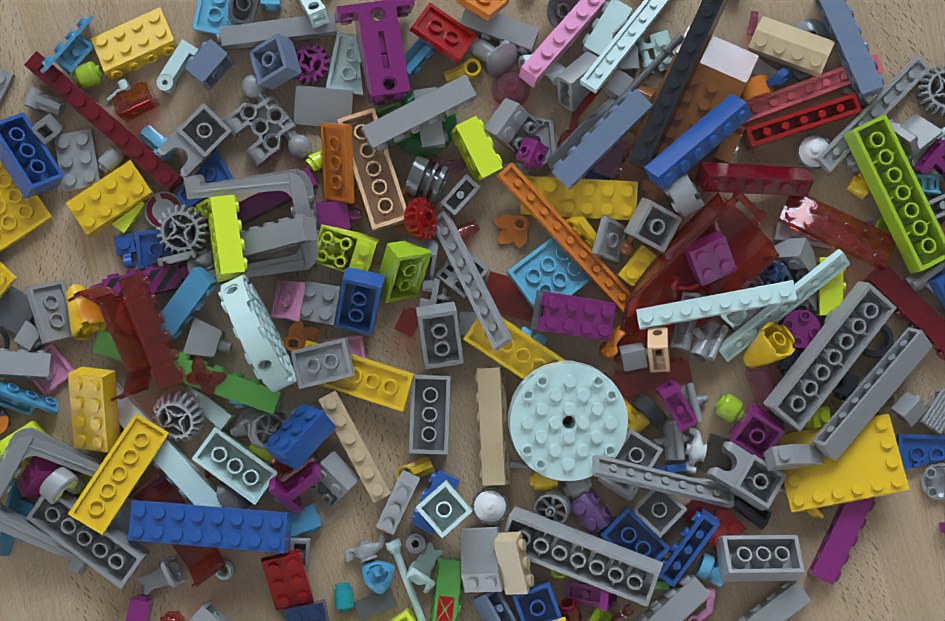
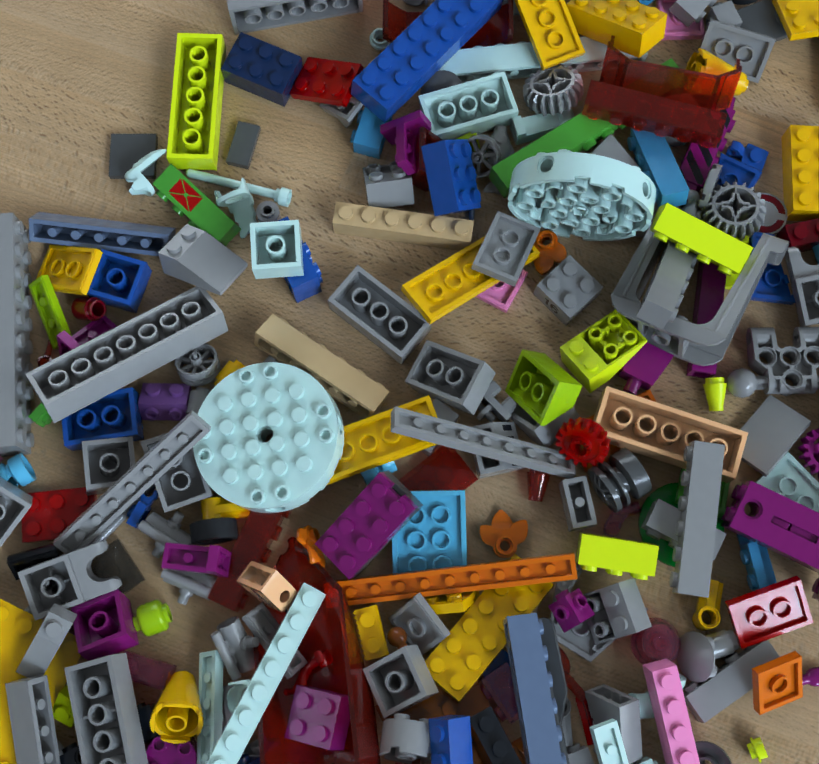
camera: 125 degrees right, 10 degrees down
(128, 220) = (776, 174): neon yellow piece -> none
(204, 377) = (574, 130): clear red animal -> none
(288, 300) = (592, 262): bright pink tile -> none
(337, 162) = (701, 403): orange tile -> none
(343, 597) = (272, 120): teal brick -> none
(359, 301) = (542, 324): blue brick -> none
(365, 550) = (298, 168): light grey piece -> none
(377, 575) = (267, 161): dark azure piece -> none
(397, 502) = (319, 223): light grey brick -> none
(407, 322) = (487, 353): clear red brick -> none
(418, 468) = (337, 265): yellow piece -> none
(490, 506) = (247, 307): white piece -> none
(513, 563) = (175, 283): tan brick -> none
(633, 356) = (281, 555): light grey brick -> none
(689, 546) = (51, 466): blue brick -> none
(695, 451) = (138, 547): white piece -> none

